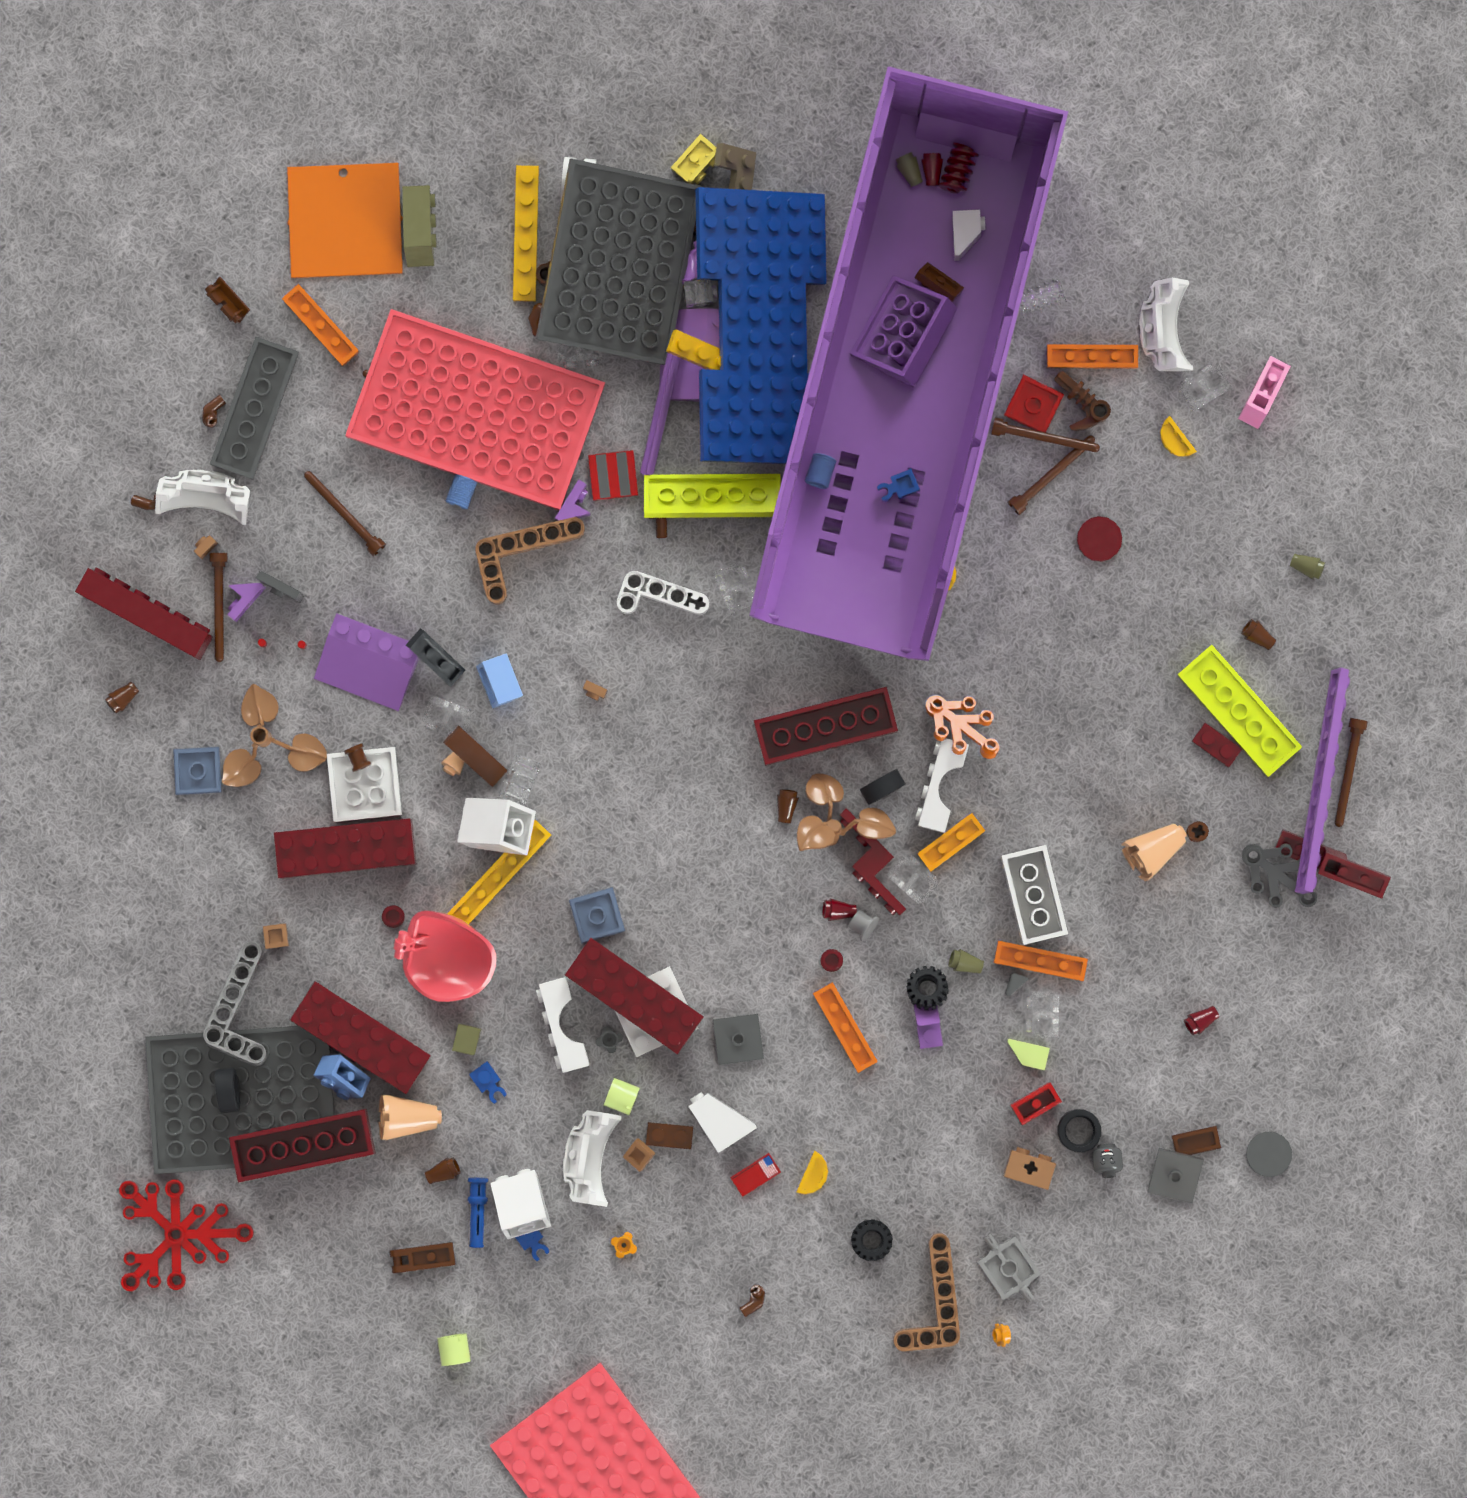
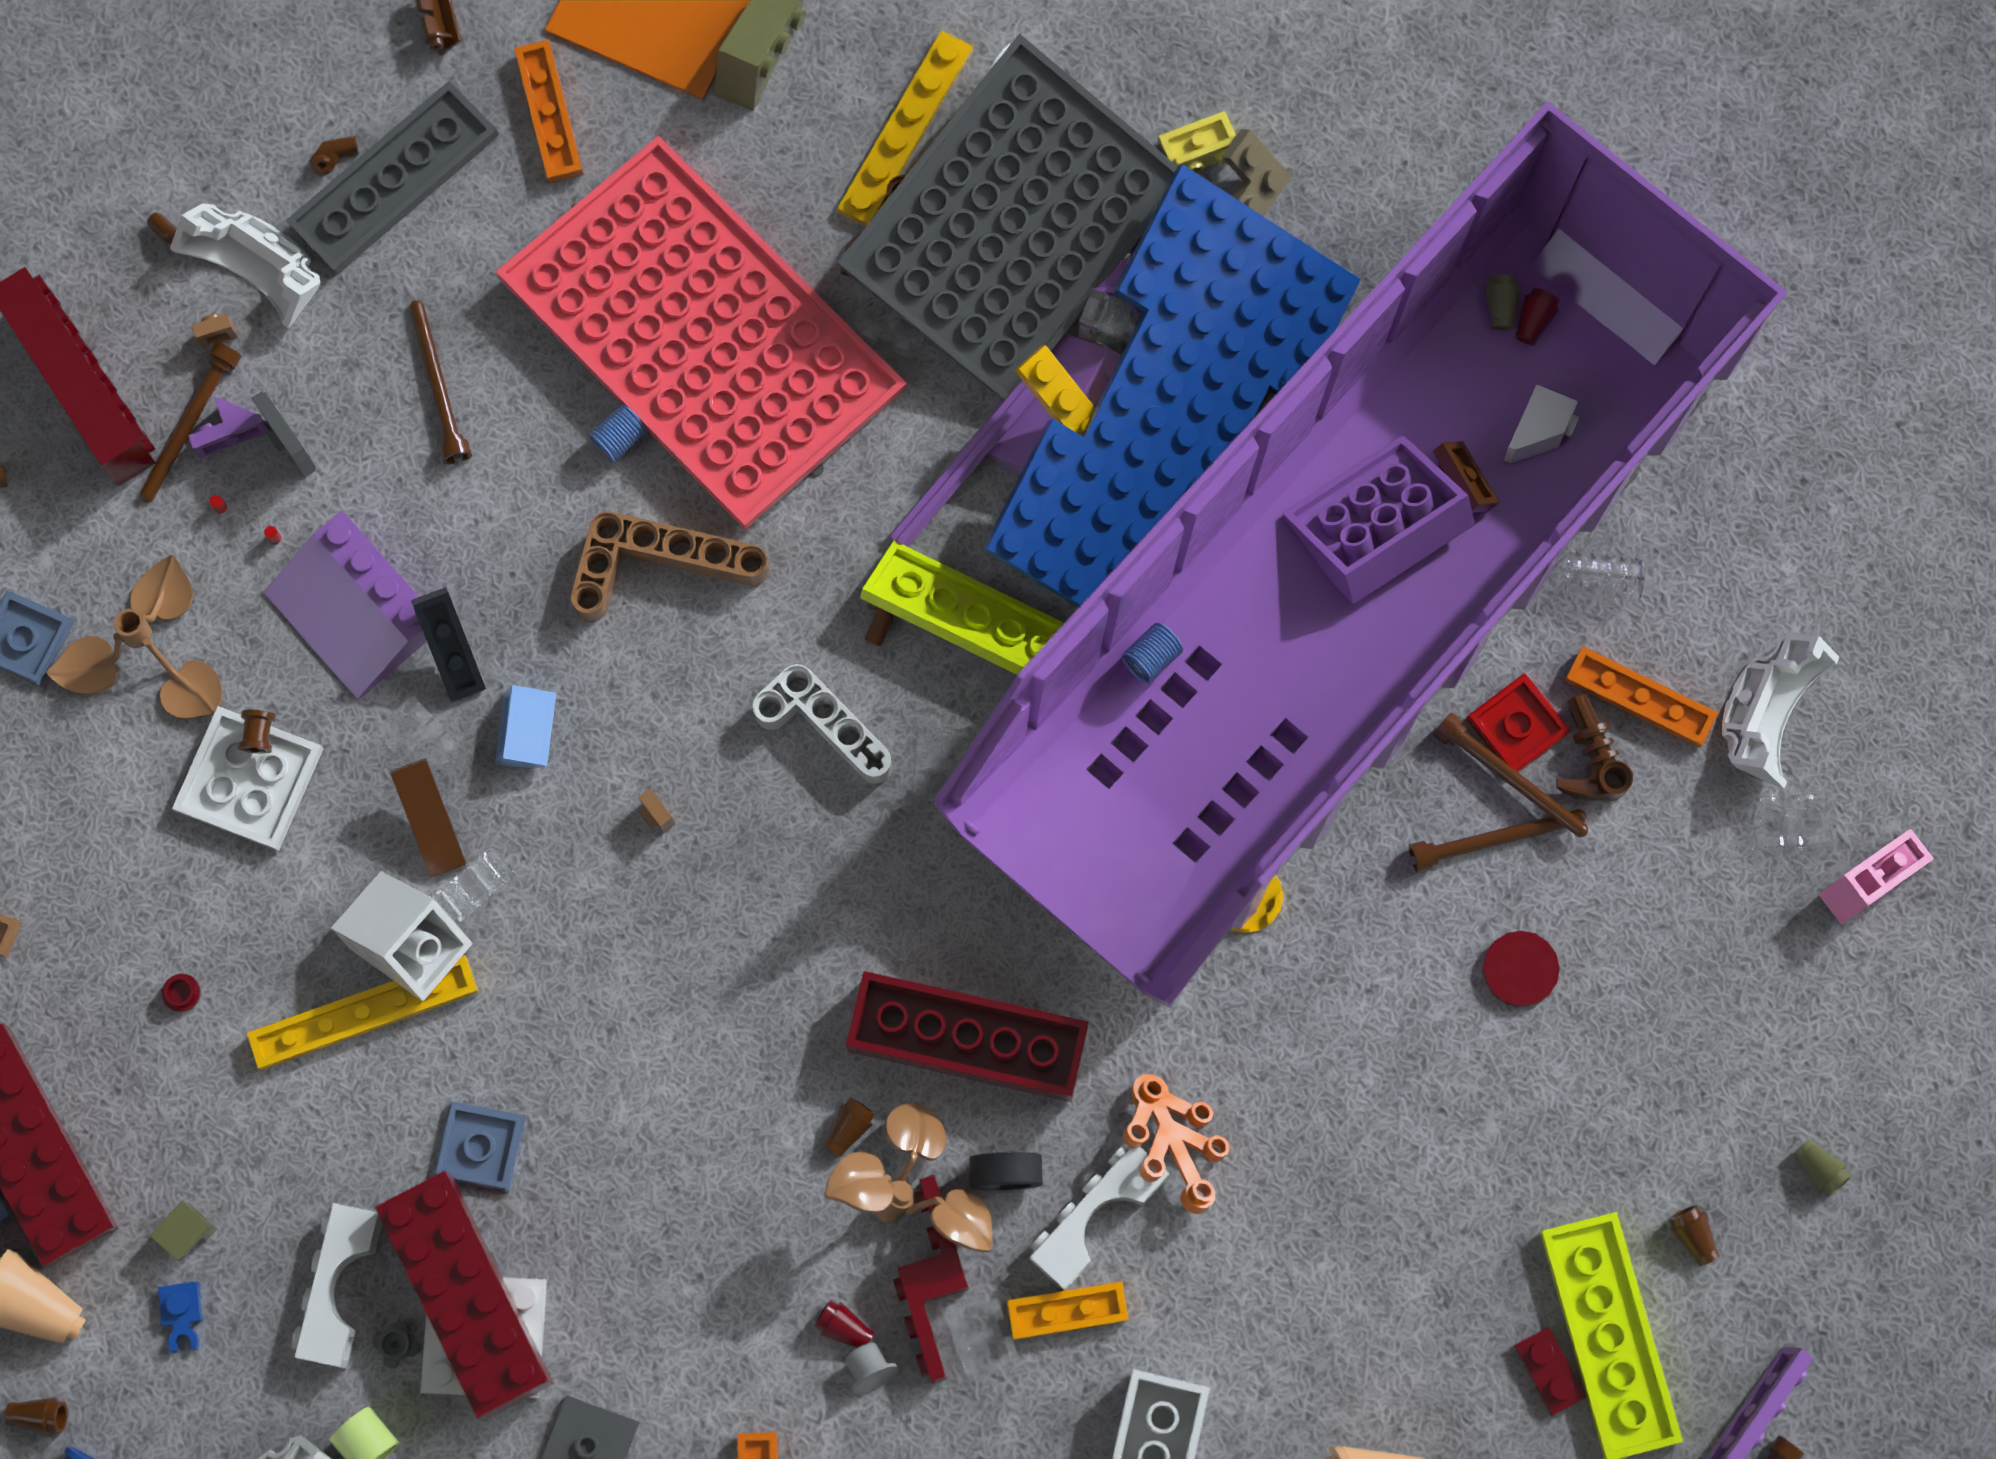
camera: 25 degrees right, 10 degrees down
(345, 848) = (166, 855): dark red brick -> none
(445, 957) = (217, 1089): coral piece -> none
(453, 764) = (391, 815): light nougat cone -> none
(569, 507) = (763, 529): medium lavender slope -> none
(613, 475) = (849, 520): tile -> none
(831, 960) = (793, 1398): dark red plate -> none
(902, 485) = (1265, 735): blue plate -> none
(958, 168) = (1573, 332): dark red piece -> none
(1175, 440) = (1706, 880): yellow tile -> none

